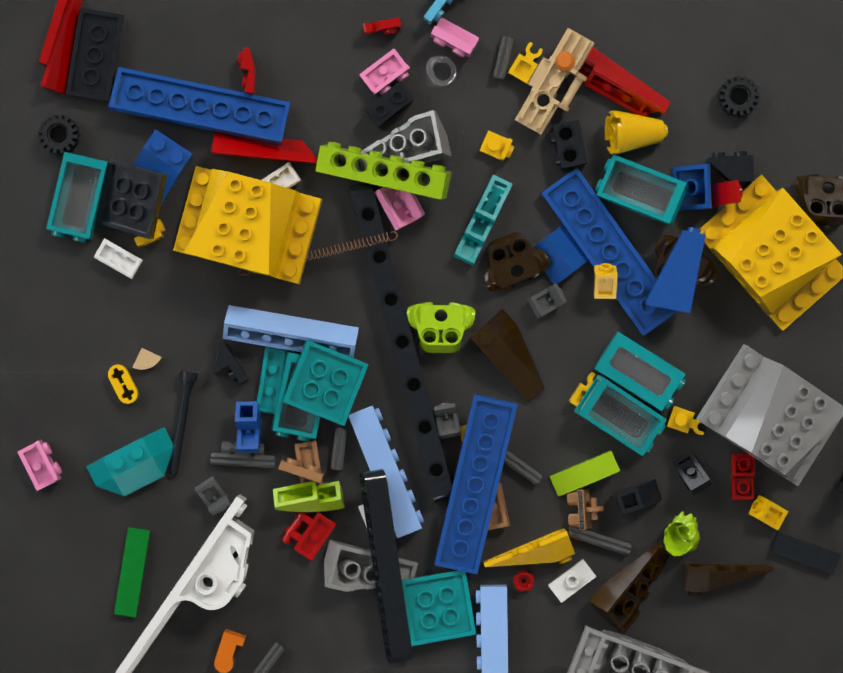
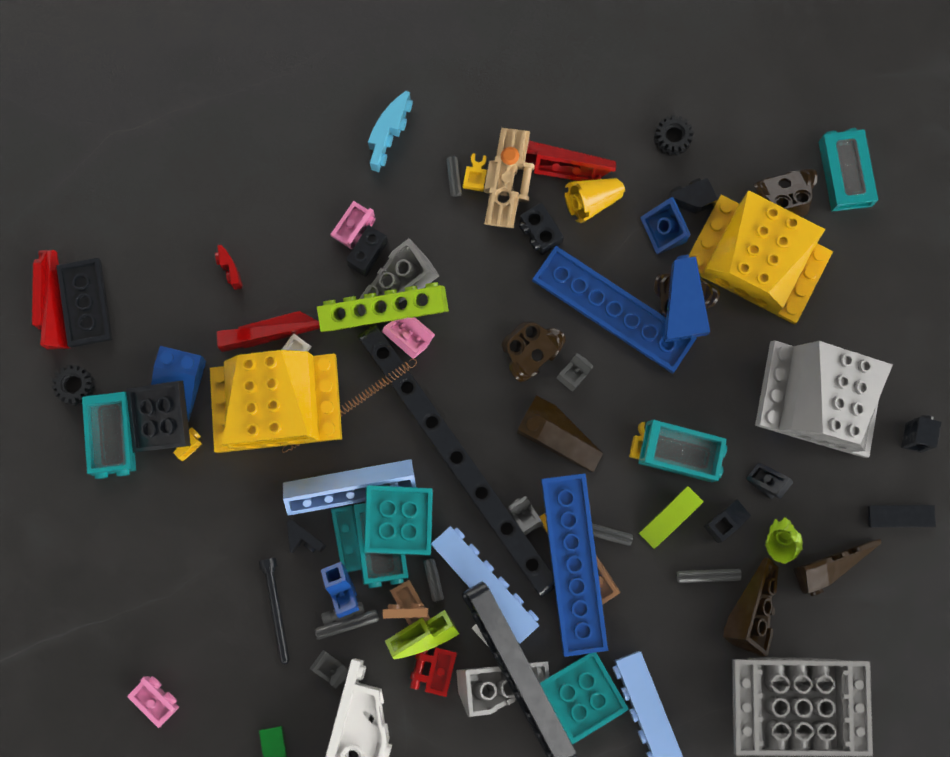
camera: 20 degrees left, 10 degrees down
(118, 258) = (165, 478): white plate -> none
(128, 381) = (204, 598): yellow beam -> none
(133, 464) = (243, 666): teal wedge -> none
(146, 360) = (223, 563): tan tile -> none
(199, 106) = (194, 313): blue plate -> none
(387, 26) = (340, 184): red plate -> none
(423, 319) = (469, 431): lime piece -> none
(441, 59) = (398, 197): clear piece -> none
(454, 37) = (403, 173): bright pink bracket -> none
(482, 220) = (489, 323): teal slope -> none
(497, 146) = (477, 254): yellow bracket -> none
(517, 580) = (659, 643): red plate -> none
(545, 549) = (663, 602): yellow wedge -> none
(563, 254) = (573, 325): blue slope -> none
(572, 580) = (698, 623): white plate -> none
(586, 509) = (685, 561): medium nougat hips -> none
(605, 281) = (621, 334): yellow bracket -> none
(640, 372) = (684, 405): teal piece -> none
(641, 190) = (621, 243): piece -> none
(683, 420) = (739, 436): yellow plate -> none
(726, 193) = (698, 218): red slope -> none
(742, 477) = (815, 468): red slope -> none
(768, 512) = (852, 491): yellow bracket -> none

